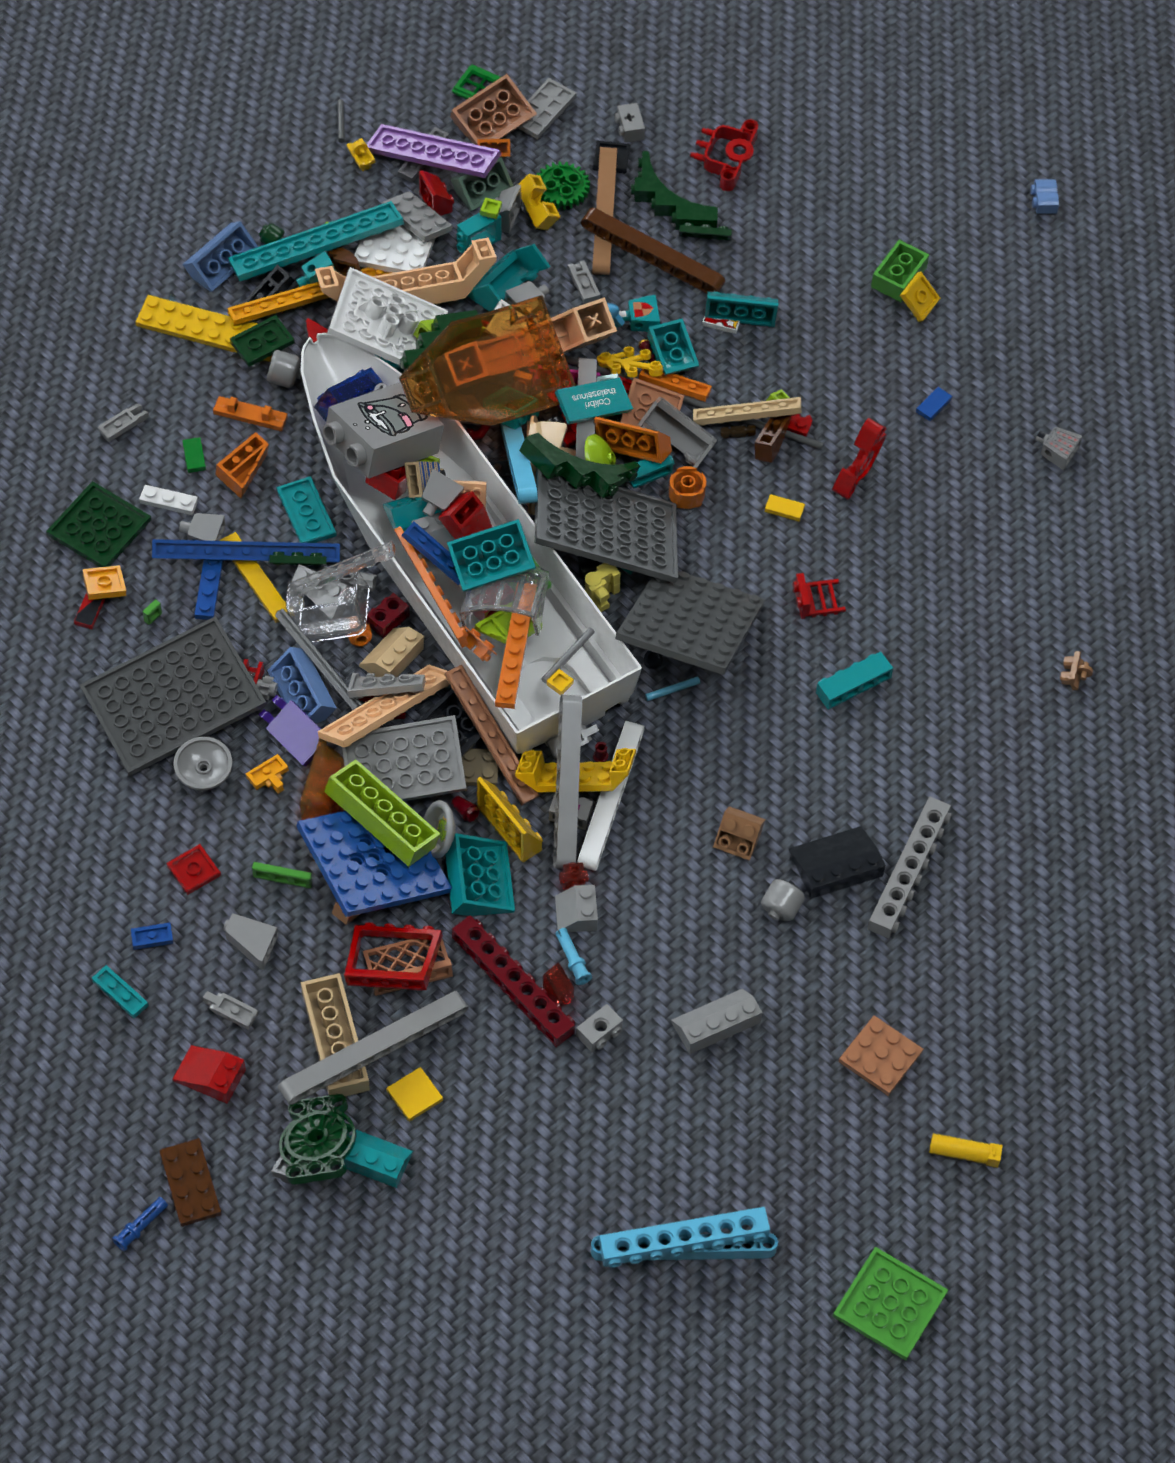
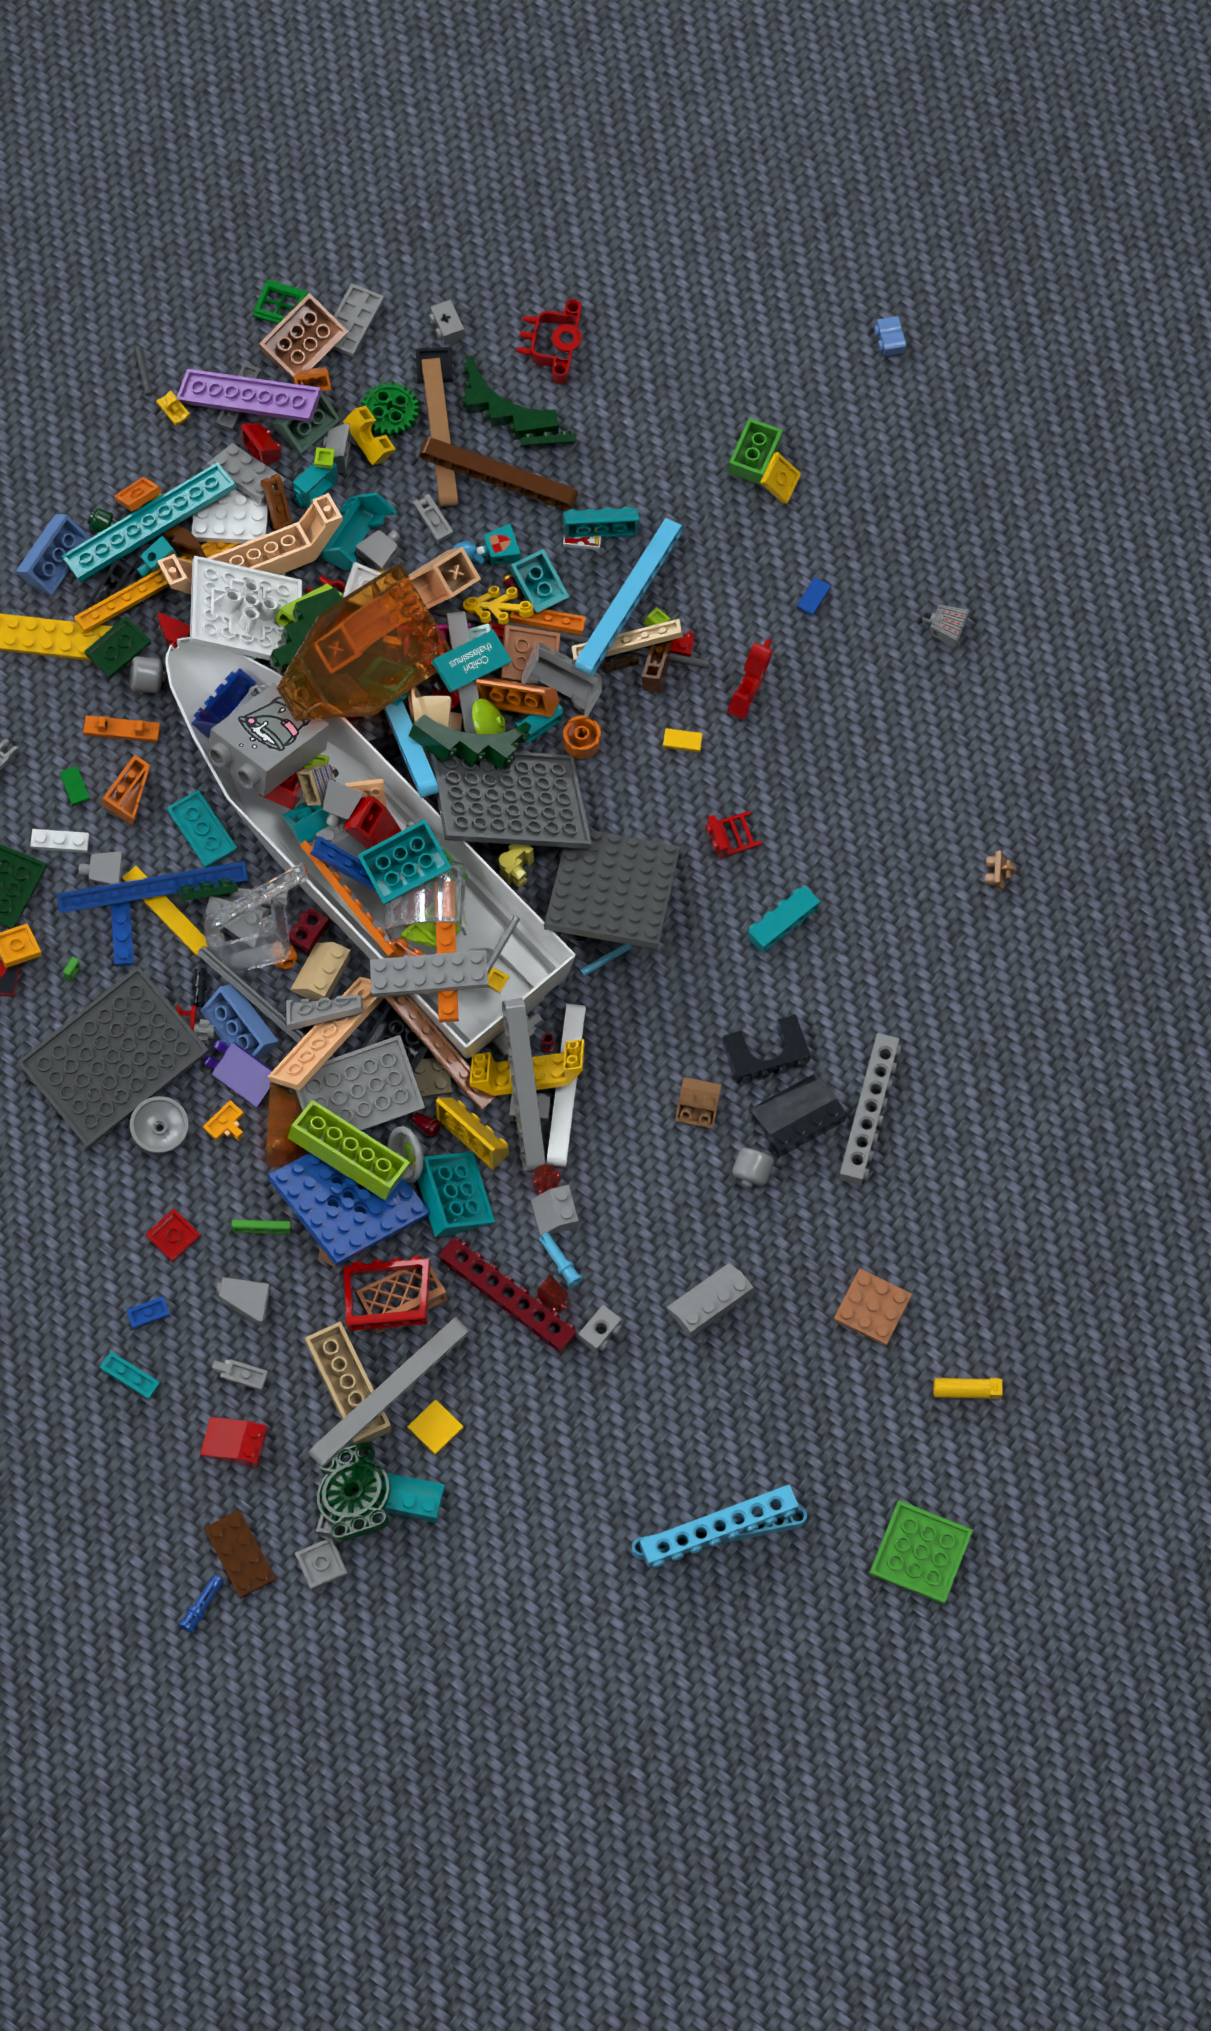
camera: 10 degrees left, 10 degrees up
(270, 1205) = (321, 1563): none -> light grey plate
(271, 648) = (199, 987): none -> black pin
(312, 217) = (137, 494): none -> orange plate
(439, 240) = (276, 501): none -> dark orange plate
(494, 659) = (429, 973): none -> light grey plate
(755, 373) = (628, 597): none -> medium azure beam
(795, 809) = (747, 1067): none -> black arch

